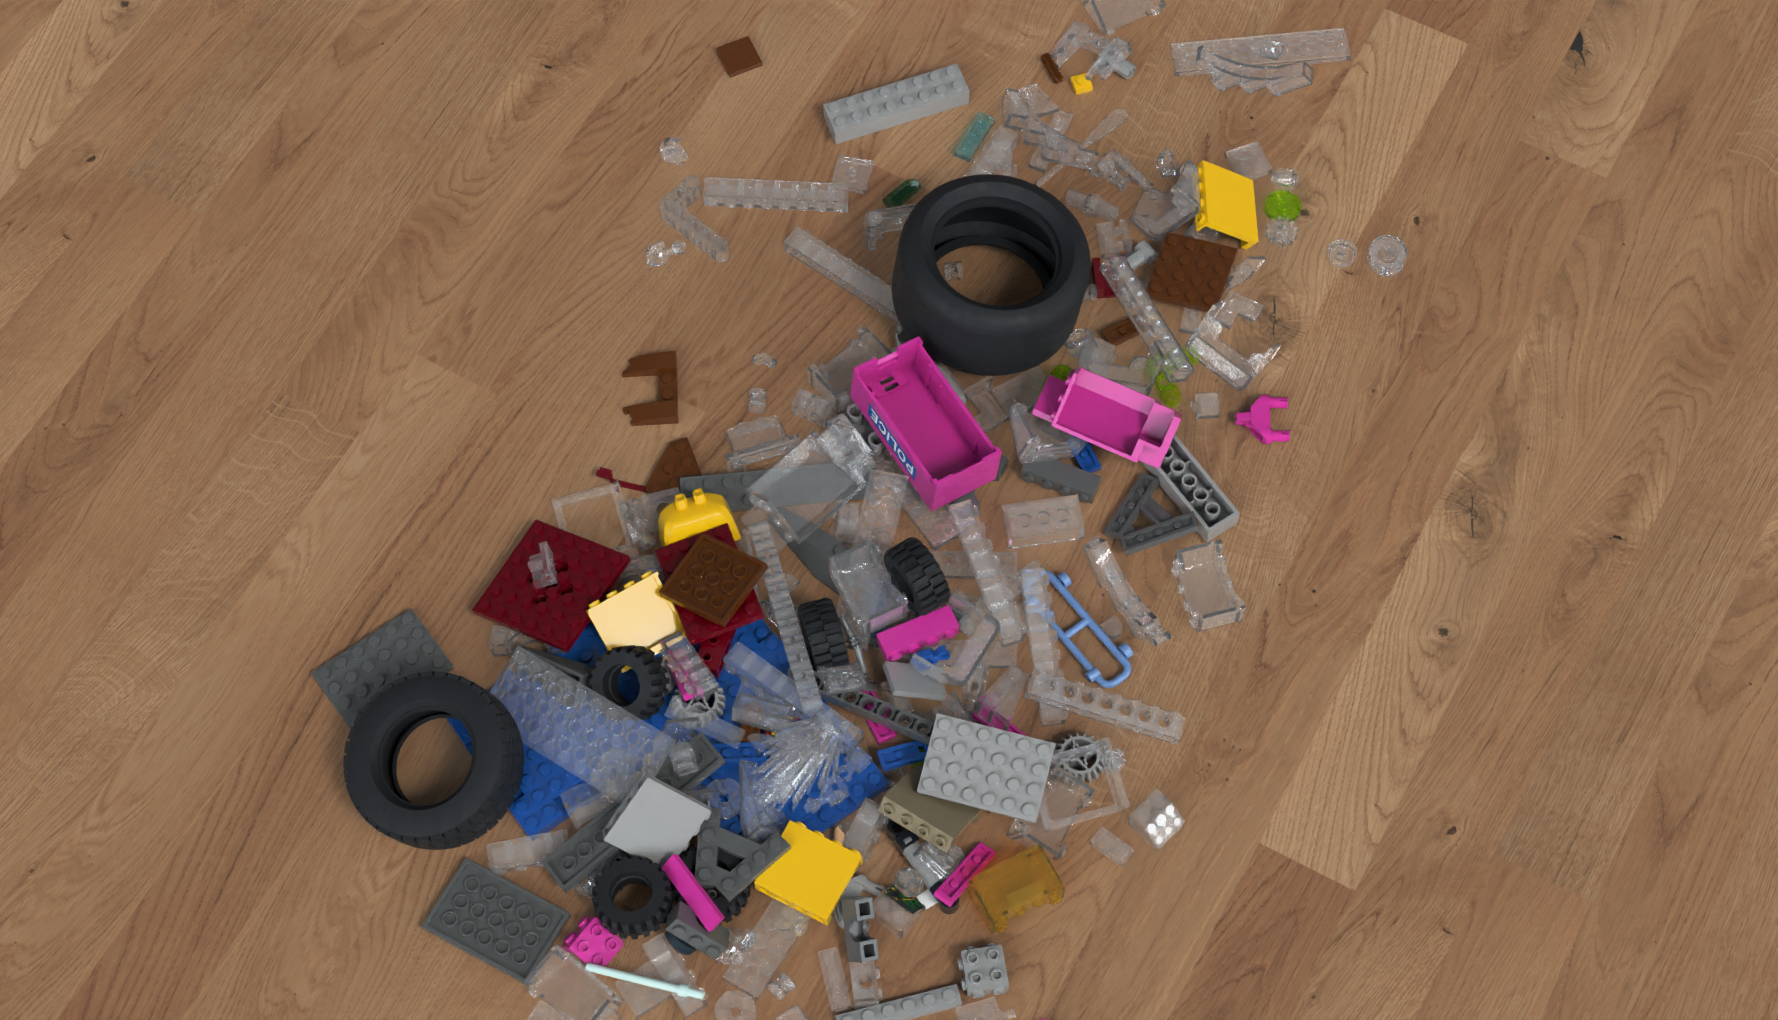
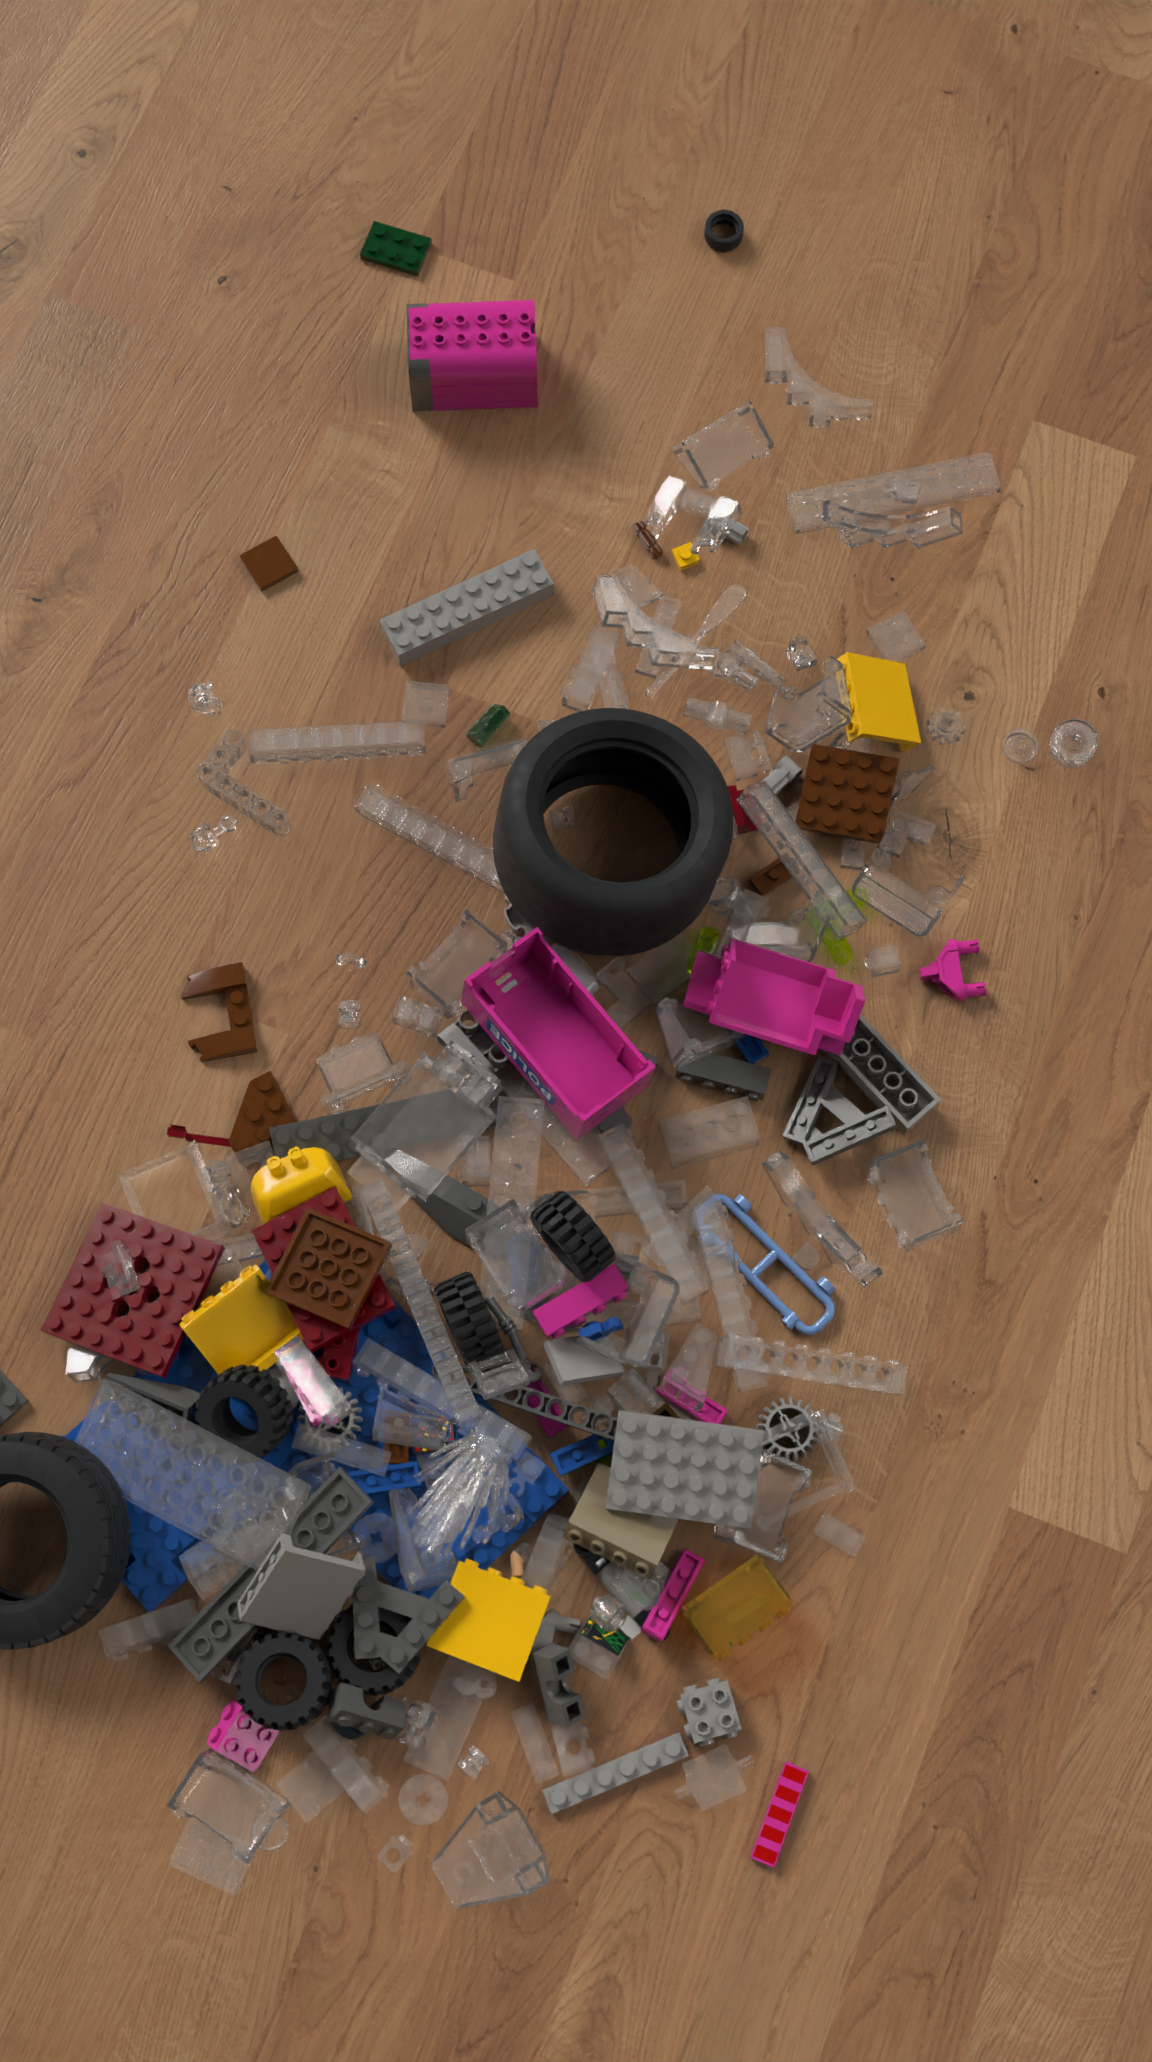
camera: 10 degrees left, 10 degrees up
(496, 921) = (123, 1722): dark grey plate -> none
(682, 990) = (358, 1788): light aqua bar -> none
(683, 758) = (323, 1507): clear brick -> none
(692, 892) = (355, 1669): dark pink tile -> none
(755, 739) = (411, 1462): clear tile -> none
(974, 137) = (565, 640): clear light blue plate -> none
(1156, 819) = (887, 1496): clear slope -> none
(1282, 204) = (942, 691): clear neon green tile -> none
(1285, 179) = (942, 657): clear head -> none

